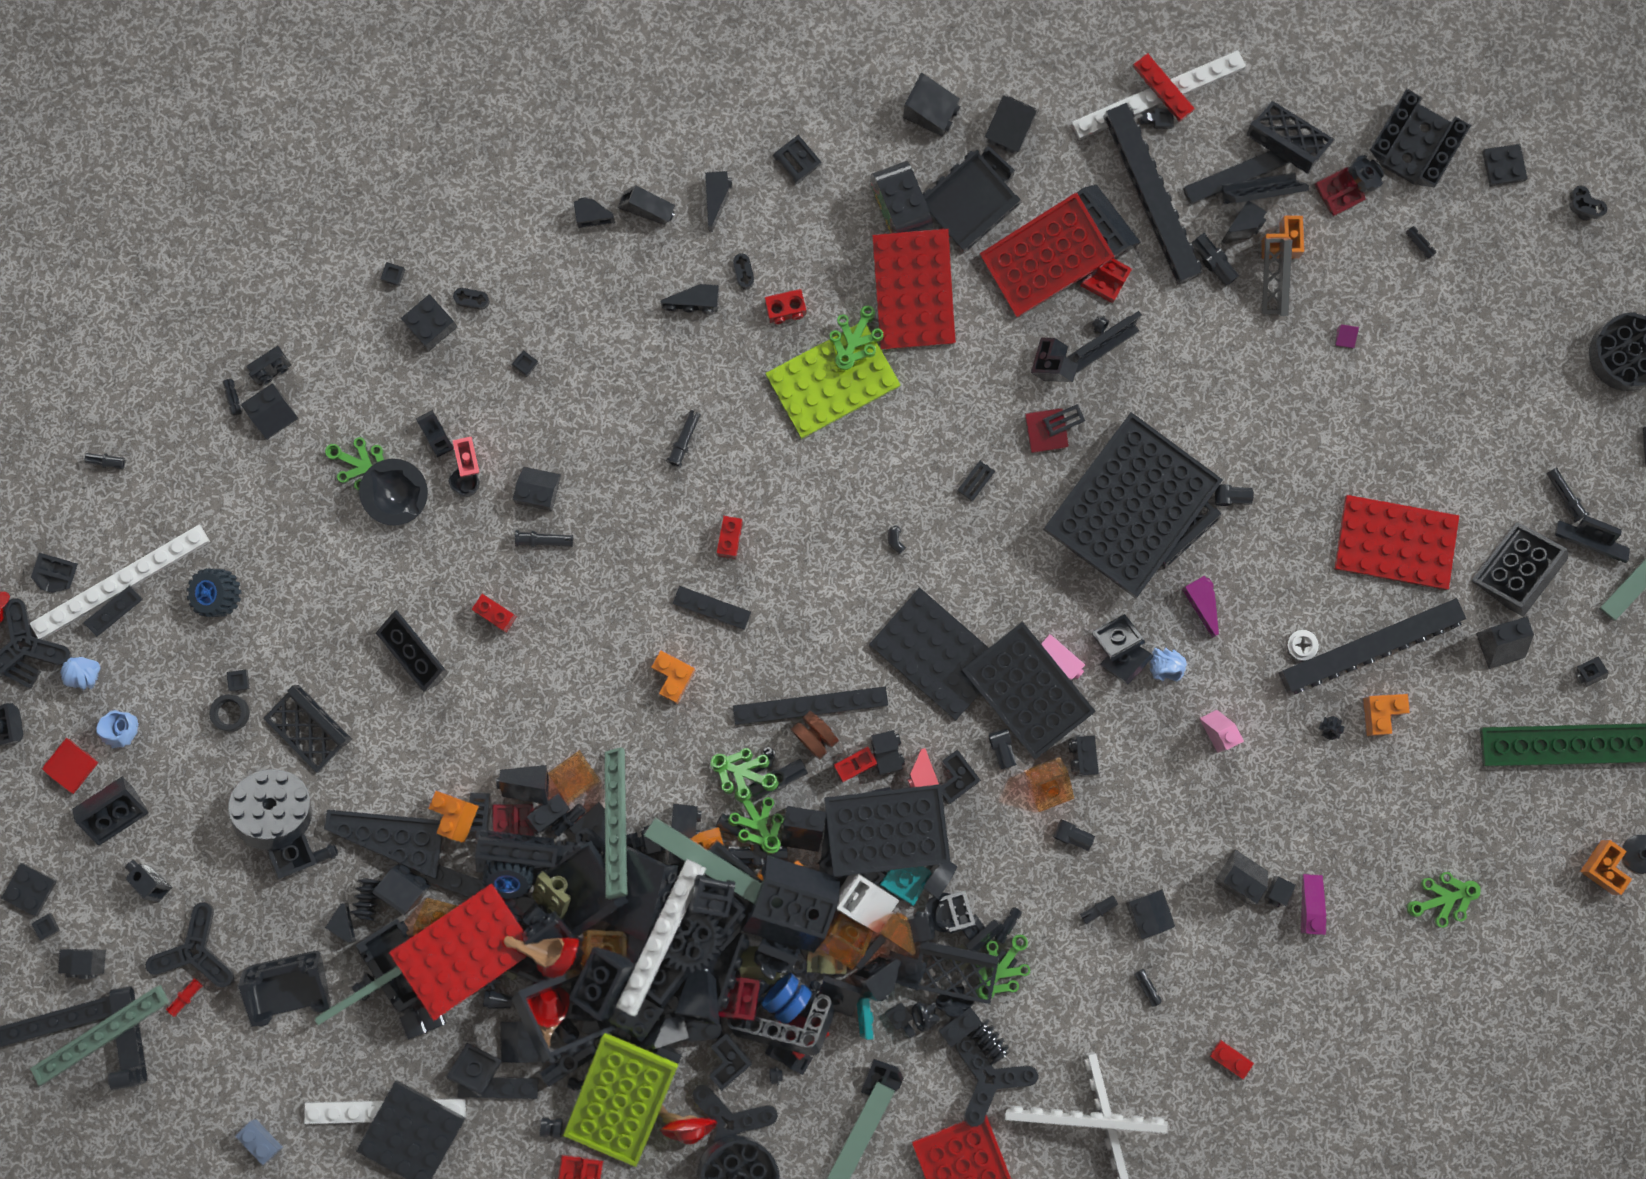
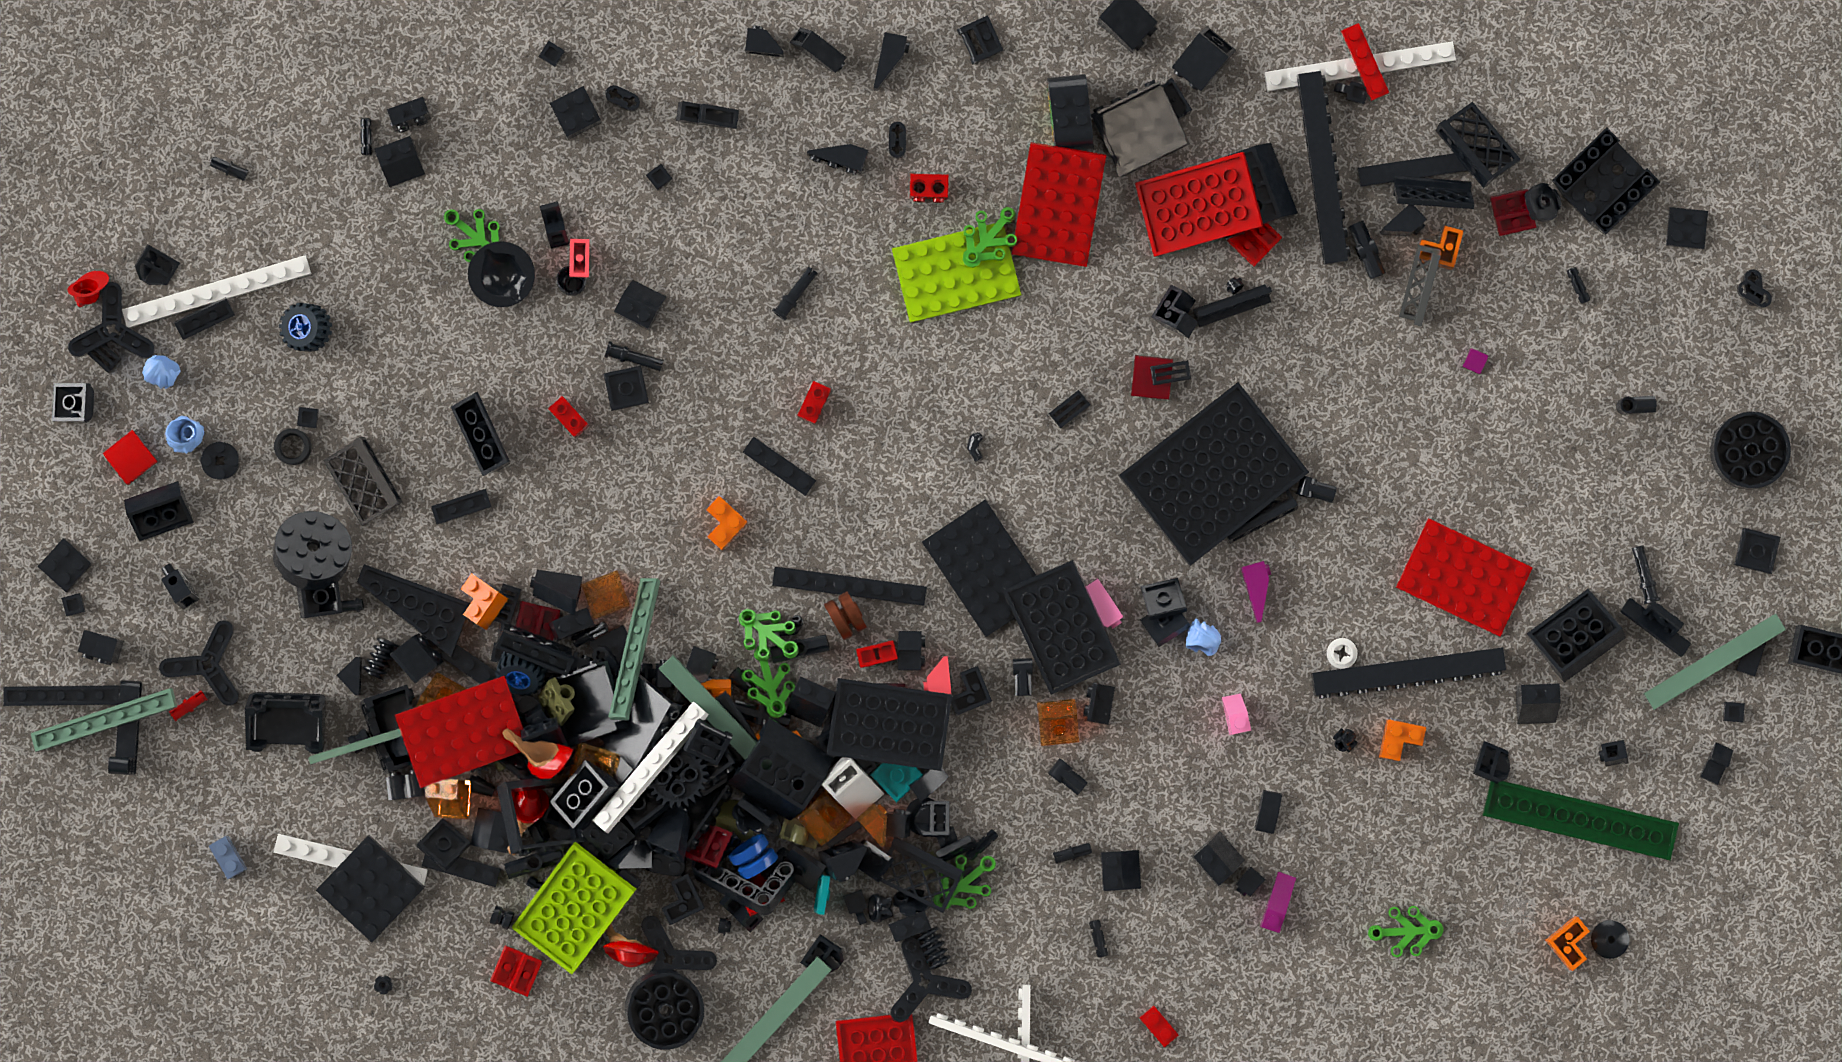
camera: 20 degrees right, 5 degrees up
(164, 756) = (209, 460): none -> black plate
(410, 728) = (461, 506): none -> black plate
(468, 1021) = (449, 798): none -> clear orange slope
(543, 571) = (626, 388): none -> black plate
(556, 293) = (707, 115): none -> black slope
(1278, 817) = (1268, 811): none -> black slope
(1477, 712) = (1492, 763): none -> black slope
(1510, 338) = (1638, 405): none -> black piece

